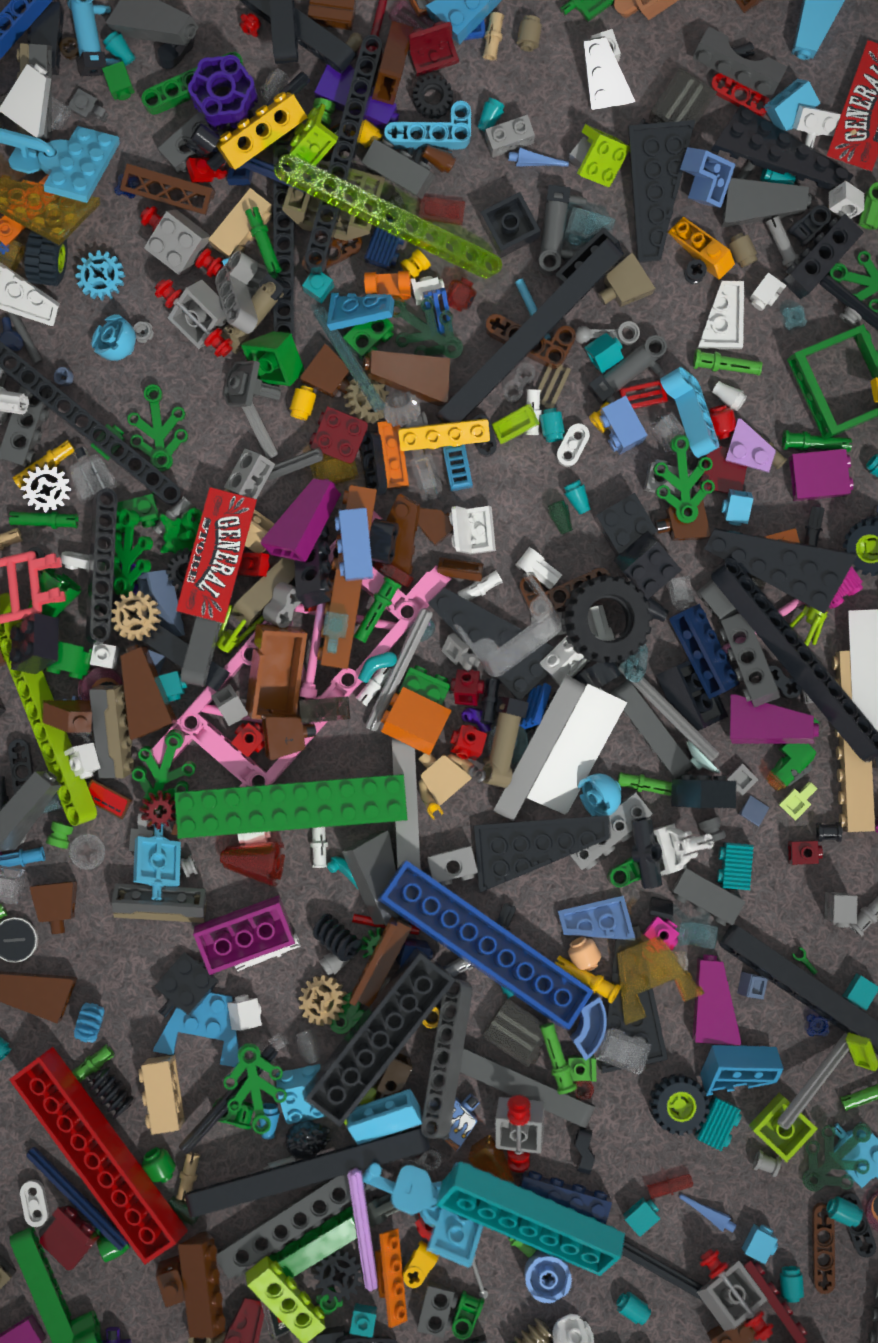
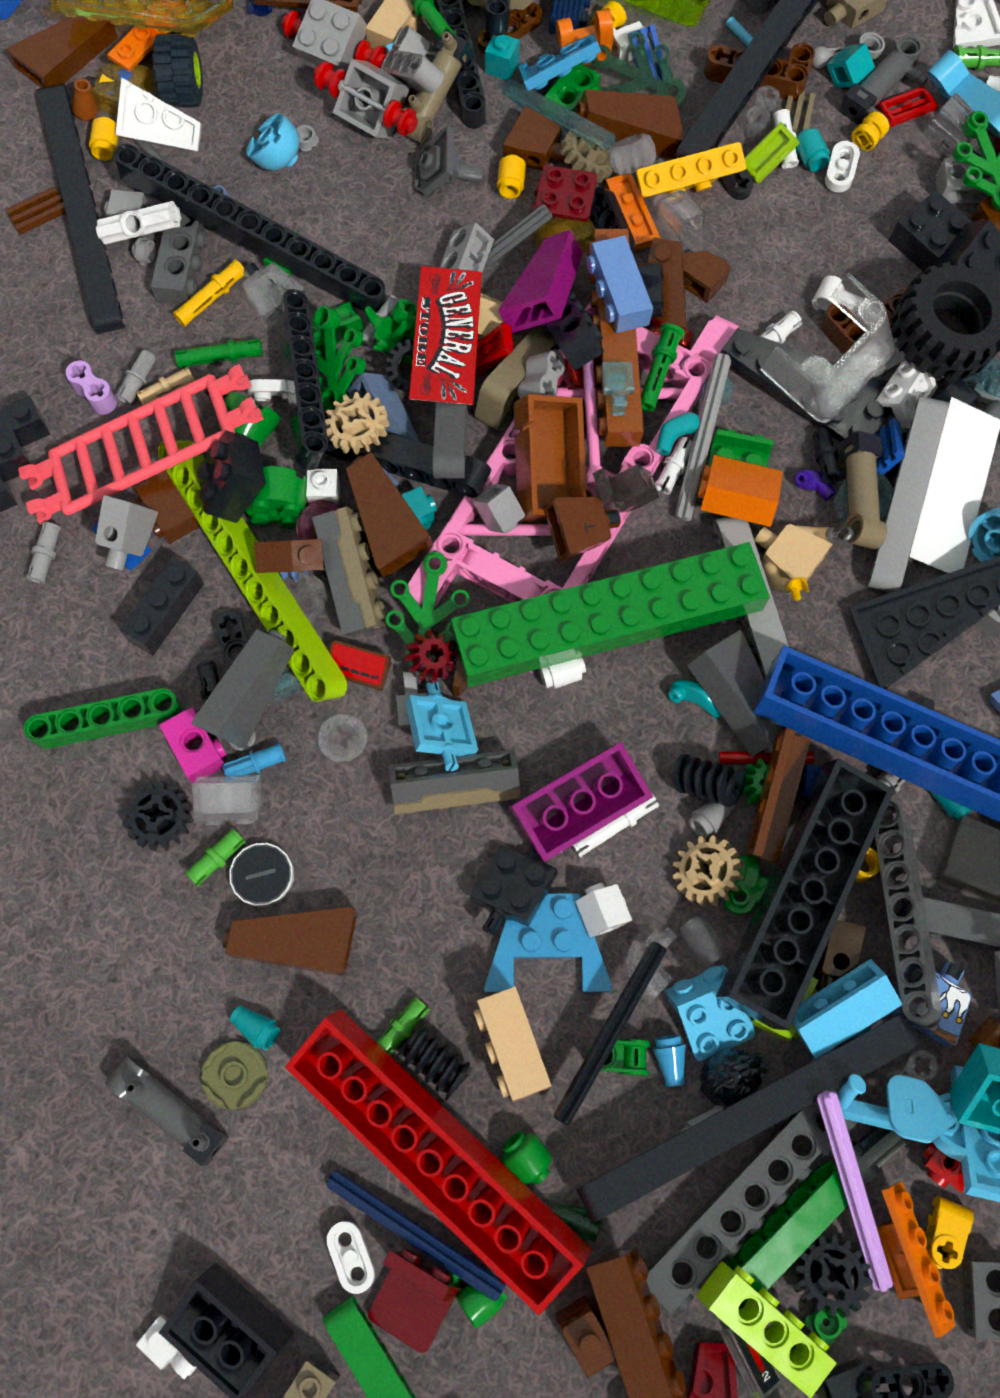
camera: 10 degrees left, 15 degrees down
(53, 483) = (211, 302): gear -> none
(55, 903) = (310, 811): reddish brown torso -> none
(59, 836) = (301, 721): bright green wheel -> none
(83, 760) = (317, 613): white brick -> none
(89, 1022) = (386, 964): dark azure gear -> none
(94, 282) = (245, 89): medium azure gear -> none
(158, 432) = (343, 238): green plant -> none
(188, 1174) = (571, 1167): tan pin -> none
(189, 866) = (484, 729): light grey bush -> none
(229, 638) = (478, 445): lime plant -> none
(241, 741) = (532, 551): red brick -> none
(254, 1083) = (645, 997): green plant -> none
(256, 861) = (572, 702): clear red cone -> none
(260, 431) = (459, 207): light grey axle -> none
(277, 358) = (474, 126): green slope -> none
(319, 847) = (651, 671): white pin -> none
(363, 1320) = (888, 1340): teal brick -> none
(457, 652) = (769, 405): light grey plate -> none
(460, 294) = (673, 35): clear red head -> none
(460, 484) = (721, 229): dark azure slope -> none
(460, 569) = (749, 316): reddish brown tile -> none
(463, 856) = (848, 649): light grey brick -> none
(467, 687) = (794, 441): dark red brick -> none
(468, 742) = (814, 505): red brick -> none
(473, 529) = (753, 270): white bracket -> none
(560, 516) = (849, 239): clear green cone -> none
(577, 496) = (864, 217): teal cone -> none
(623, 424) = (903, 125): medium blue brick -> none

